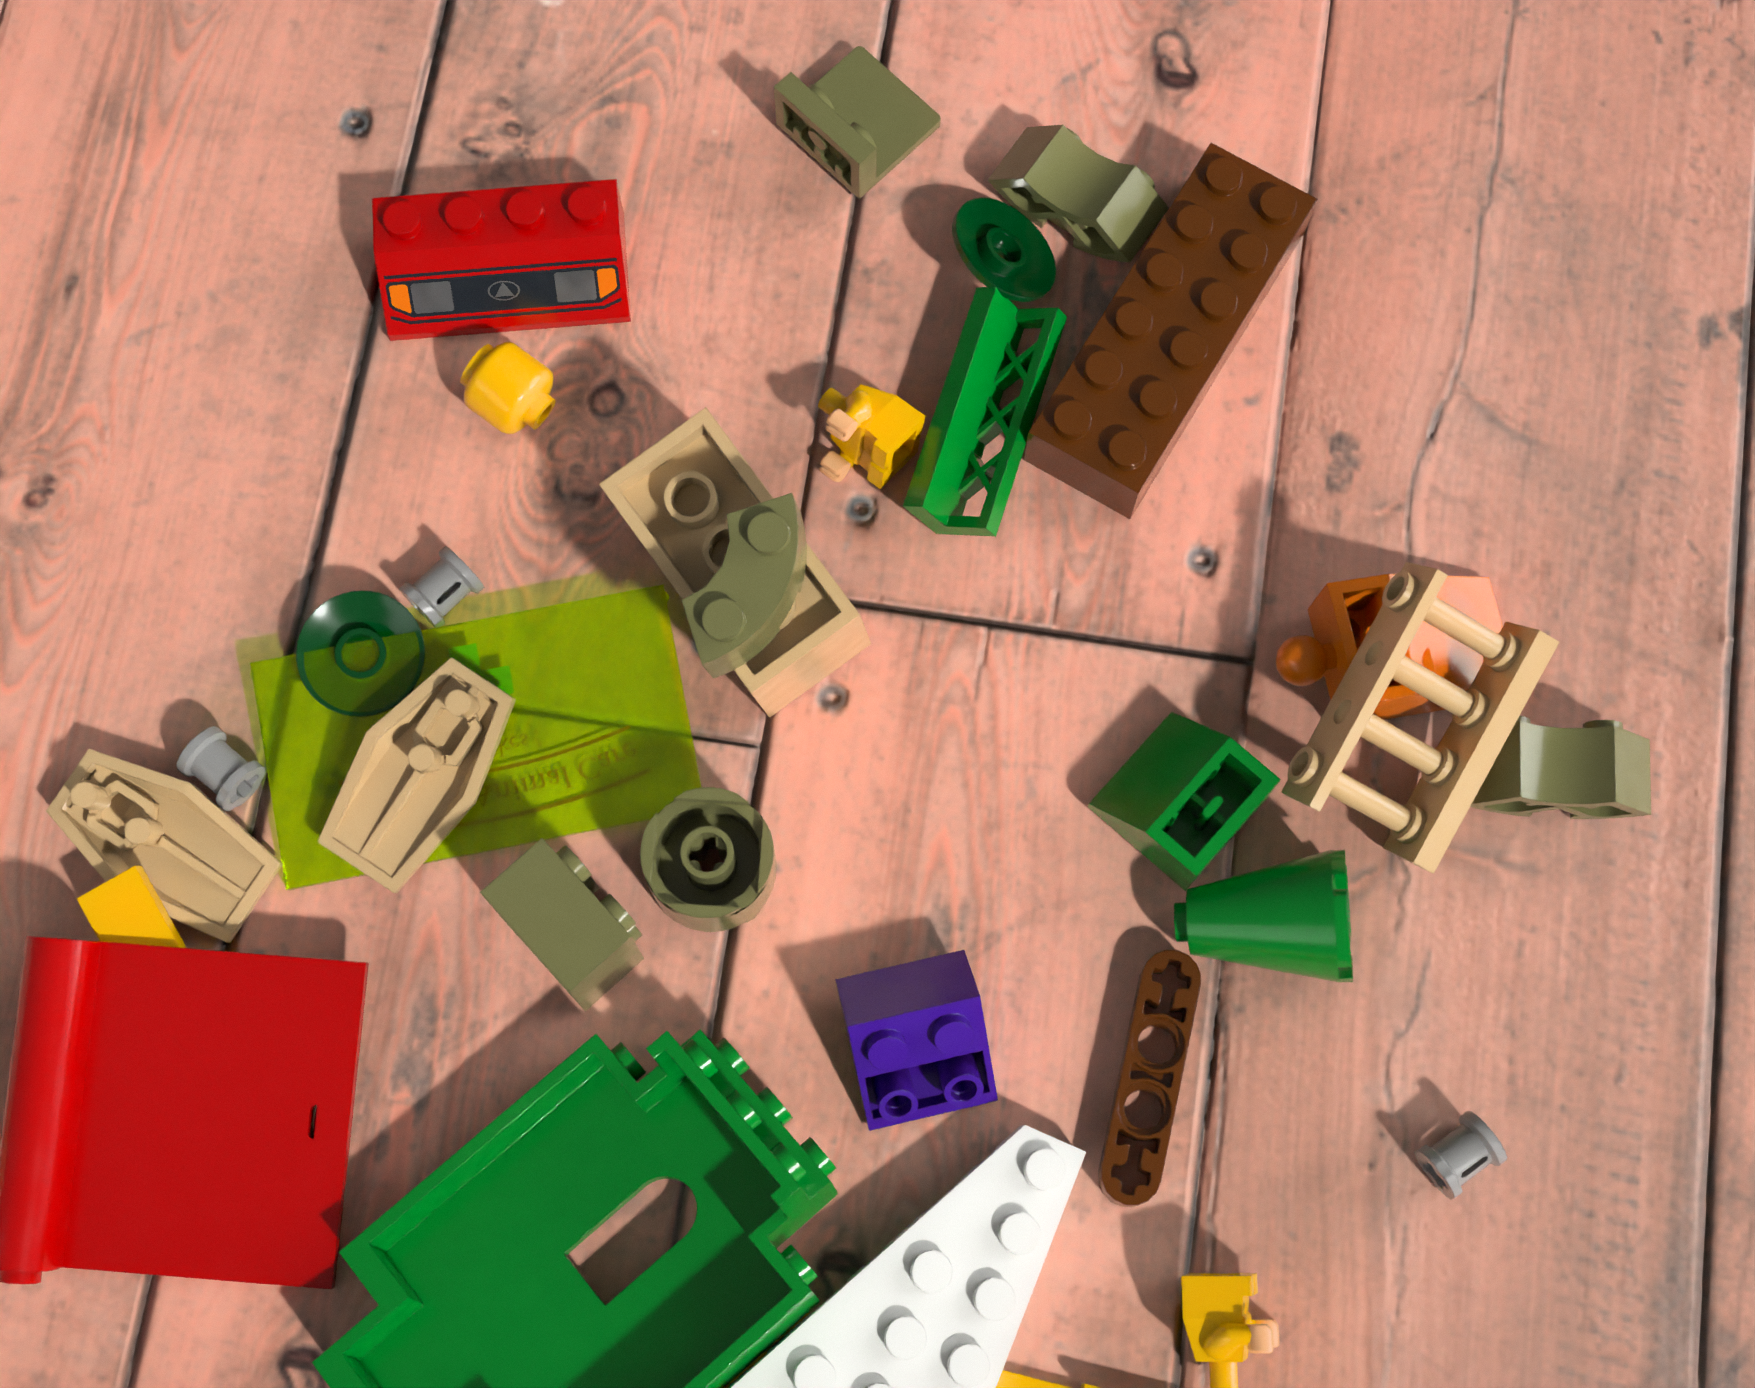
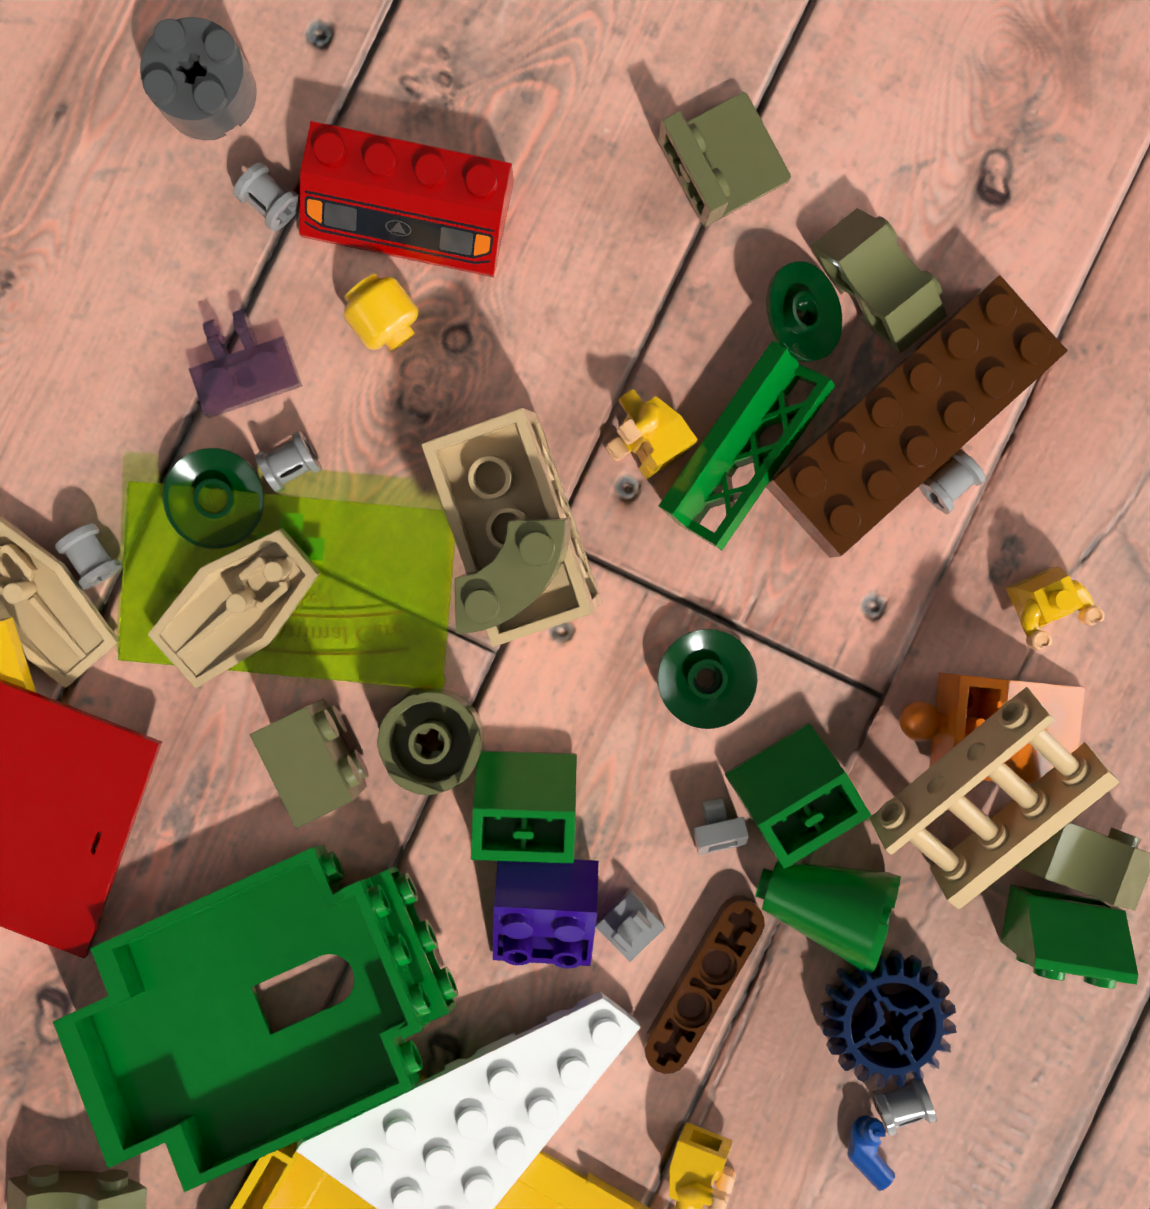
camera: 25 degrees right, 15 degrees up
(228, 196) = (198, 77): none -> dark grey brick
(340, 302) = (267, 196): none -> light grey bush
(361, 509) = (245, 375): none -> clear purple hinge
(851, 911) = (524, 807): none -> green slope
(1031, 1030) = (630, 925): none -> light grey tile
(1035, 664) = (732, 685): none -> dark green dish
(1104, 873) = (719, 831): none -> light grey tile
(1240, 385) = (952, 481): none -> light grey bush
(1407, 485) = (1048, 598): none -> yellow piece
(1421, 1065) = (869, 1025): none -> dark blue gear
(1430, 1232) = (863, 1151): none -> blue arm
(1579, 865) = (1069, 936): none -> green slope

